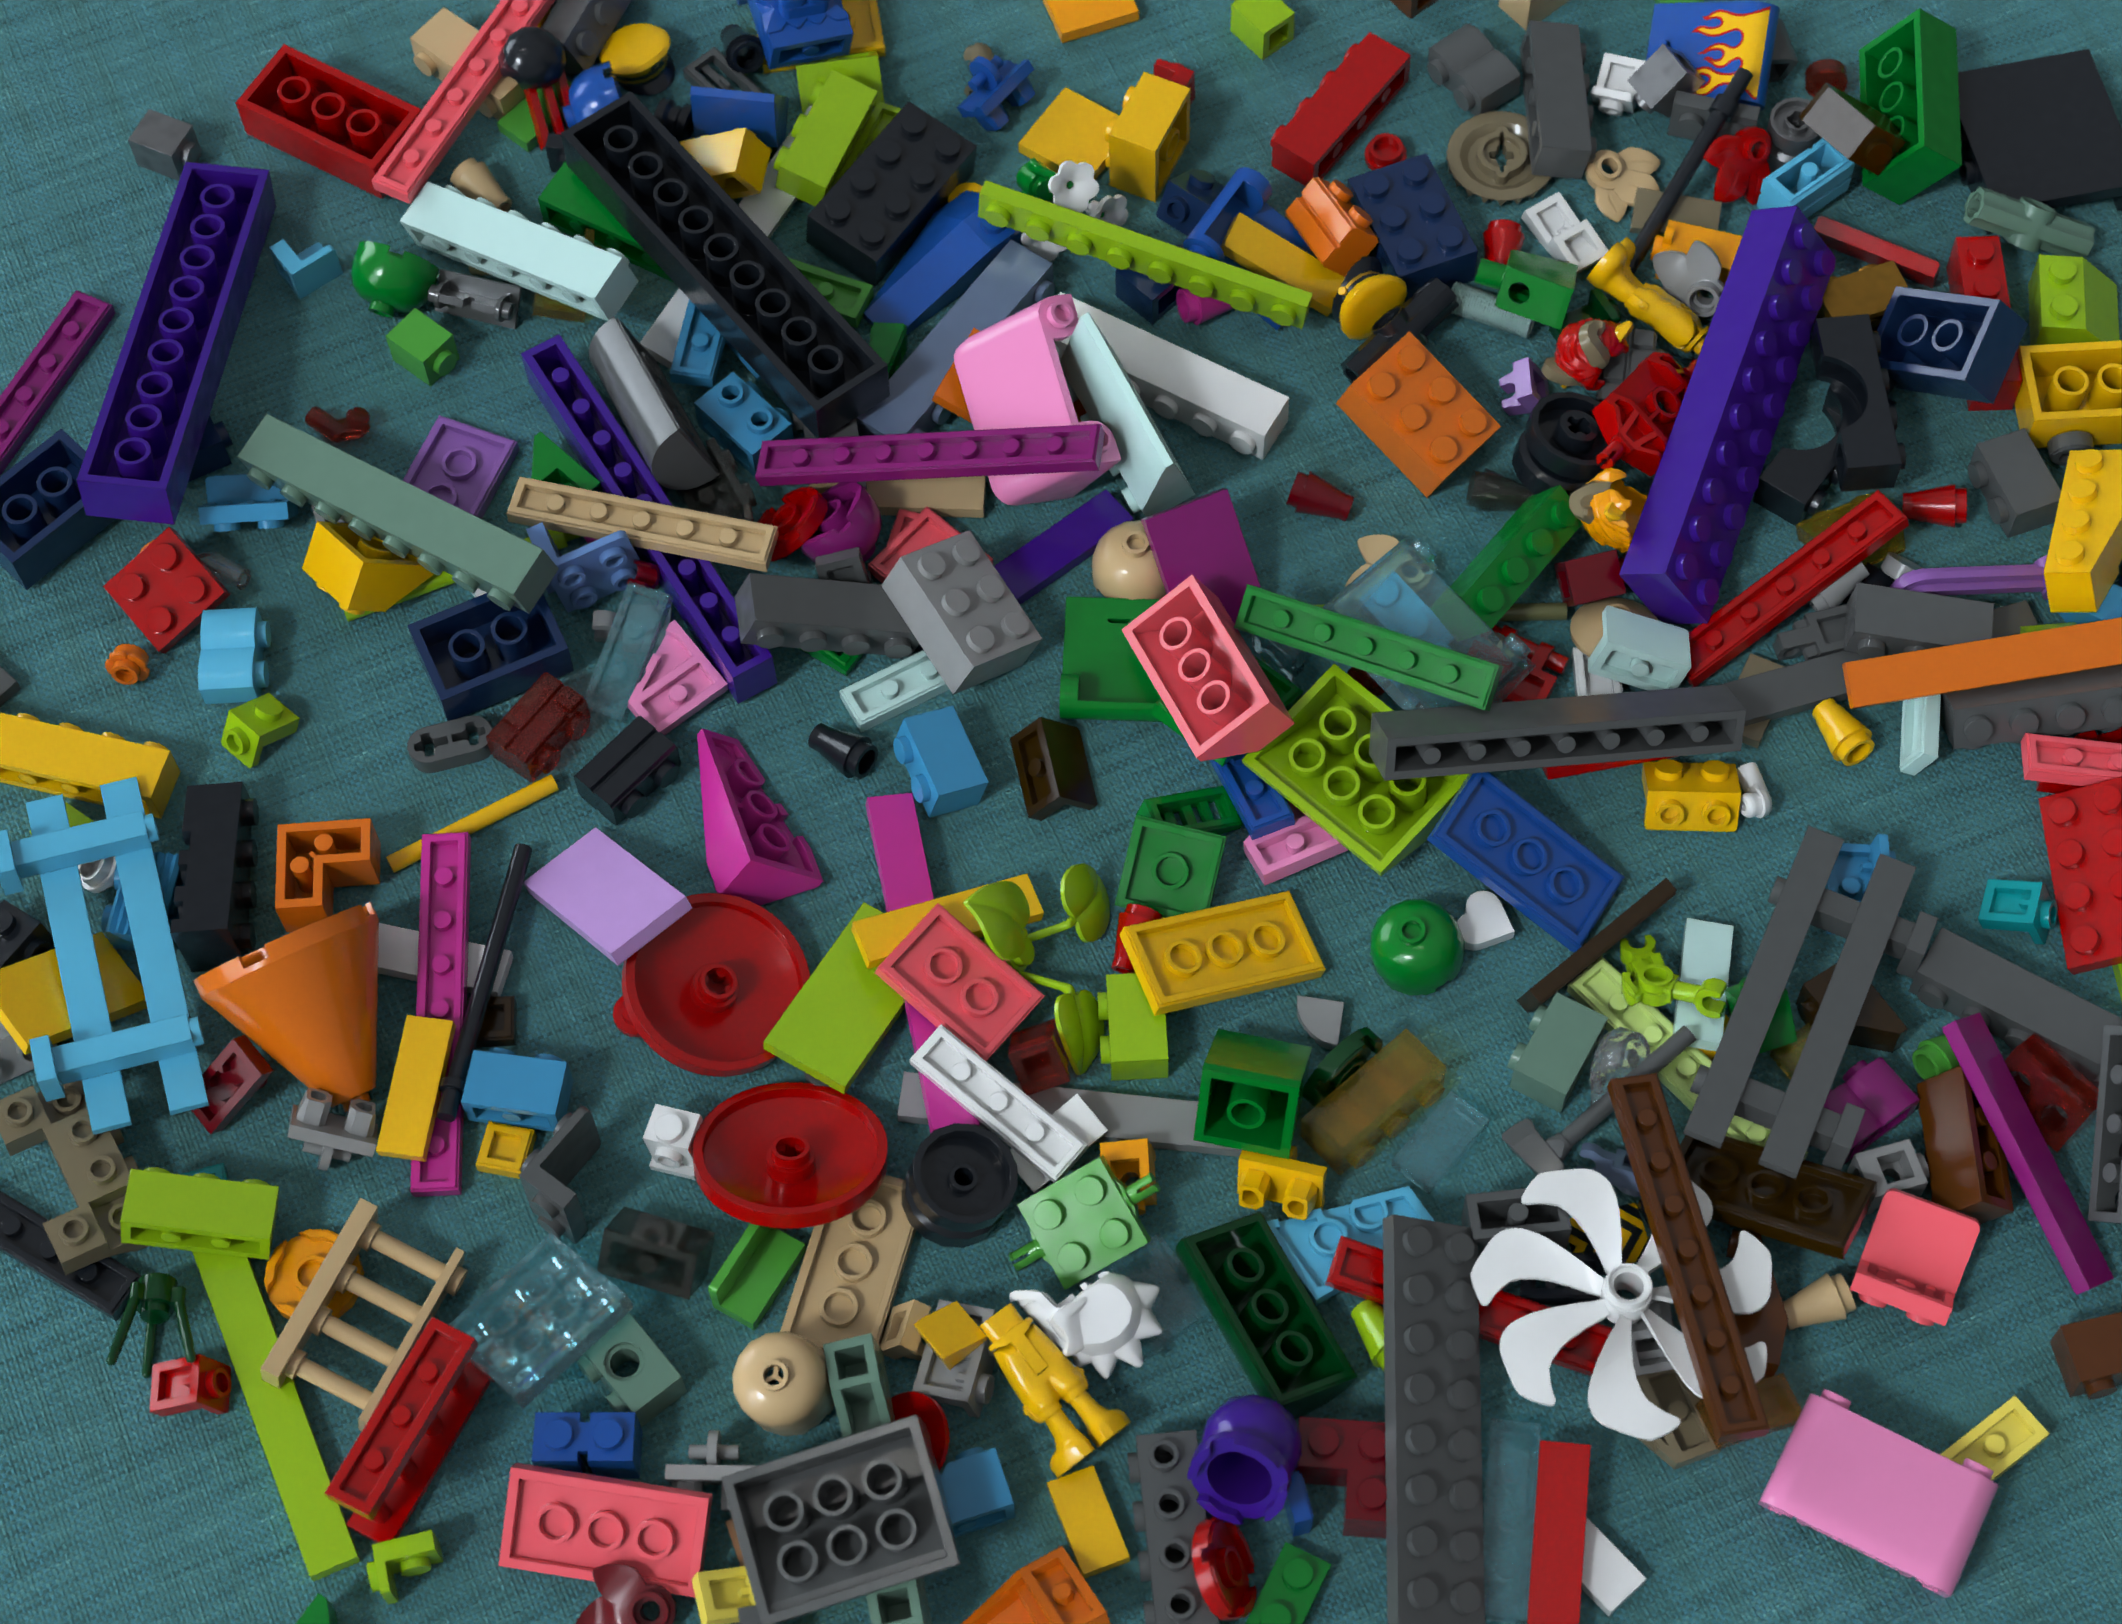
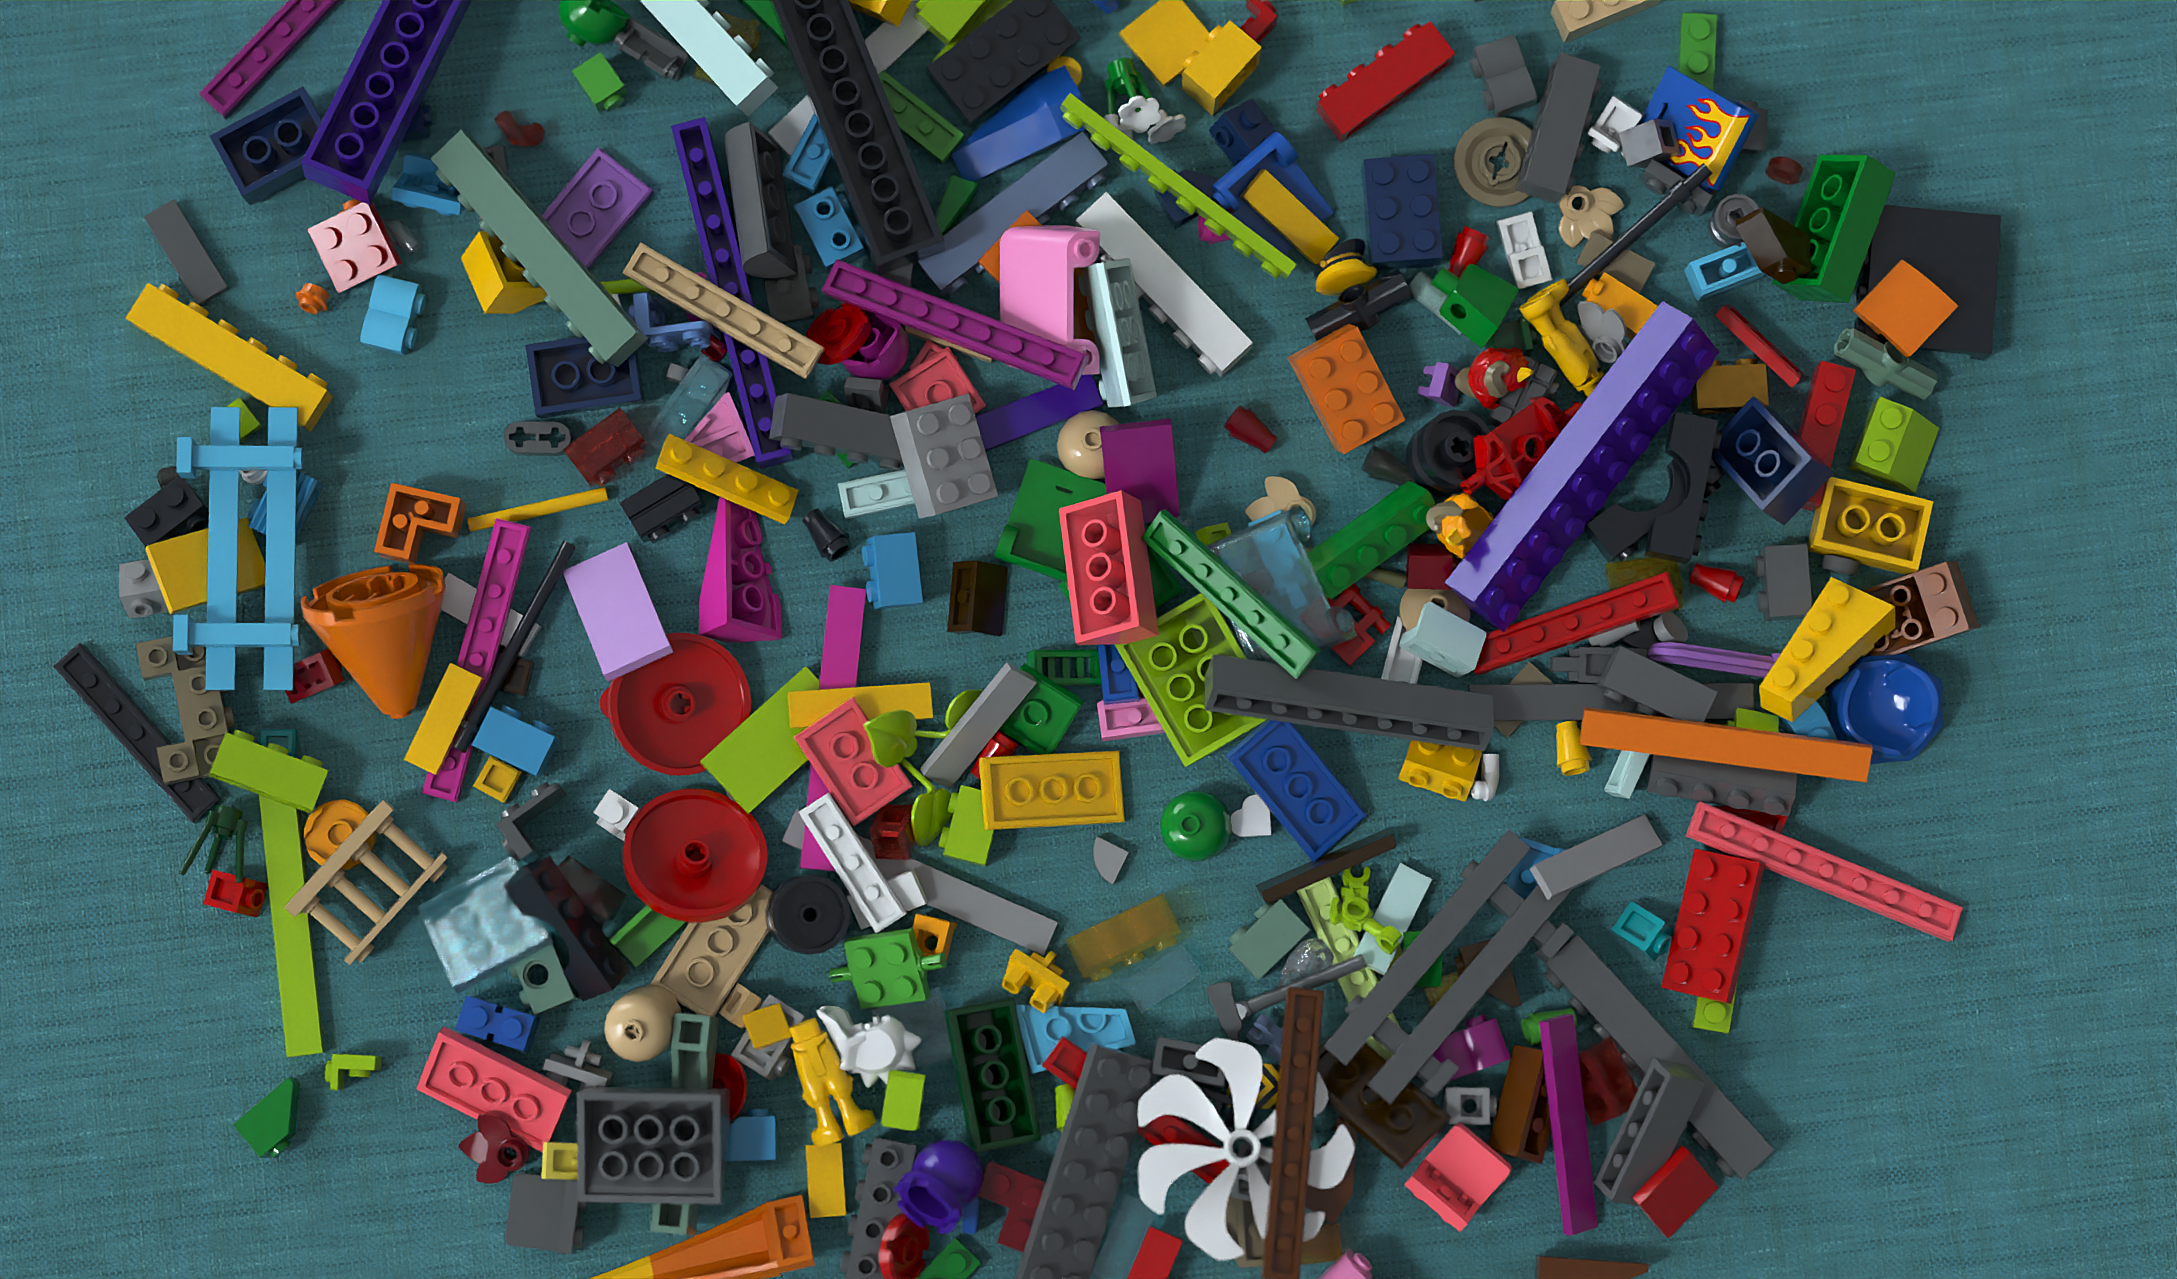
camera: 15 degrees right, 20 degrees up
(216, 876) = (340, 500): black wedge -> none
(255, 726) = (397, 381): lime bracket -> none
(330, 1133) = (377, 733): light grey hips -> none
(409, 1433) = (374, 987): red fence -> none
(556, 466) = (672, 227): green slope -> none
(693, 1319) = (546, 894): none -> black arch
(700, 713) = (726, 479): none -> yellow plate
(1105, 898) = (978, 725): none -> light grey tile
(1160, 1376) = (903, 1100): none -> lime slope
(1251, 1093) = (1036, 908): green slope -> none
(1332, 224) = (1338, 195): orange brick -> none
(1341, 1064) = (1107, 910): dark green tile -> none
(1384, 151) = (1408, 131): red plate -> none
(1738, 169) = (1680, 237): red plate -> none
(1820, 1302) = (1382, 1182): tan cone -> none
(1925, 831) = (1595, 857): none -> light grey tile
(2027, 157) = (1905, 308): none -> orange slope

